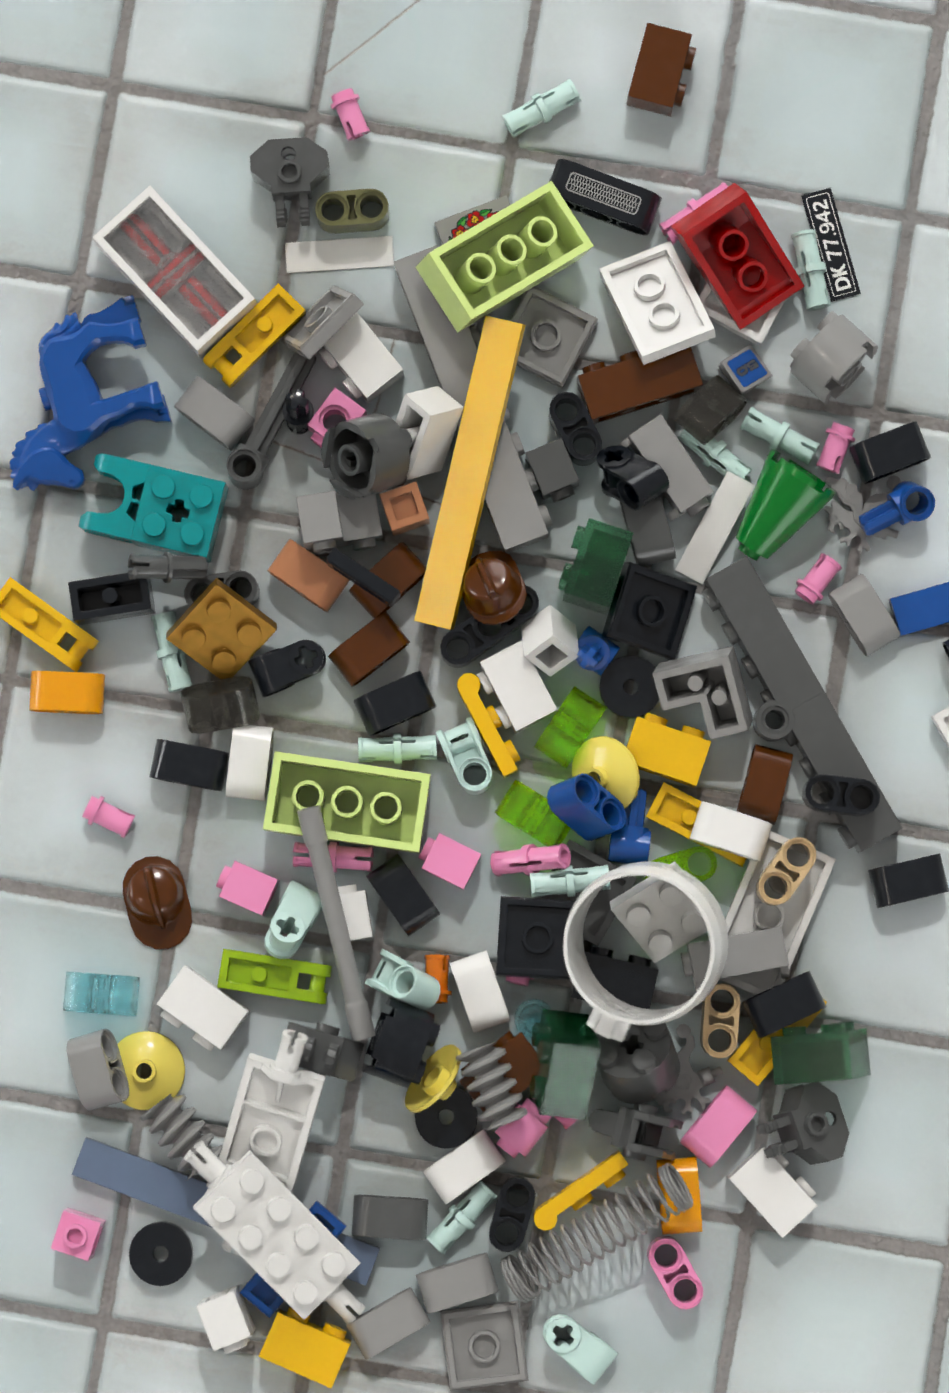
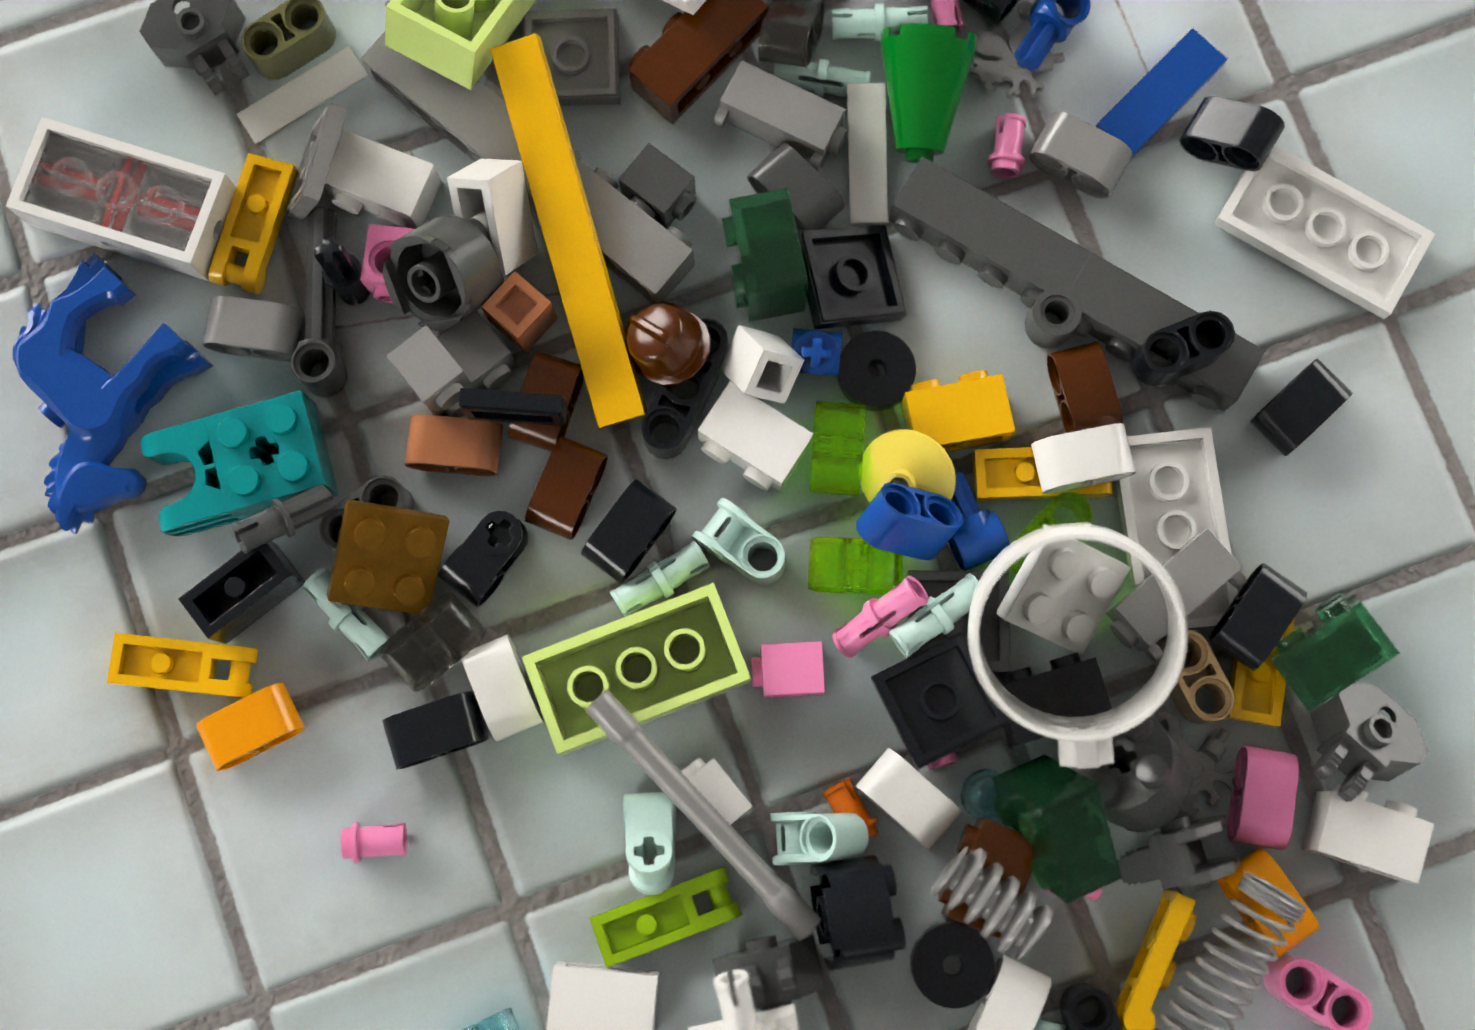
camera: 30 degrees left, 5 degrees down
(157, 902) = (485, 908): reddish brown piece -> none
(247, 887) = (577, 832): bright pink brick -> none
(341, 856) = (665, 735): bright pink pin -> none
(403, 895) = (759, 738): black beam -> none
(436, 1081) = (923, 928): light yellow dish -> none
(487, 723) = (778, 518): yellow plate -> none
(524, 1133) = (1058, 937): bright pink brick -> none
(578, 427) = (663, 125): black beam -> none
(631, 477) = (748, 142): black piece -> none
(714, 682) = (964, 308): light grey brick -> none
(789, 874) = (1177, 469): tan beam -> none

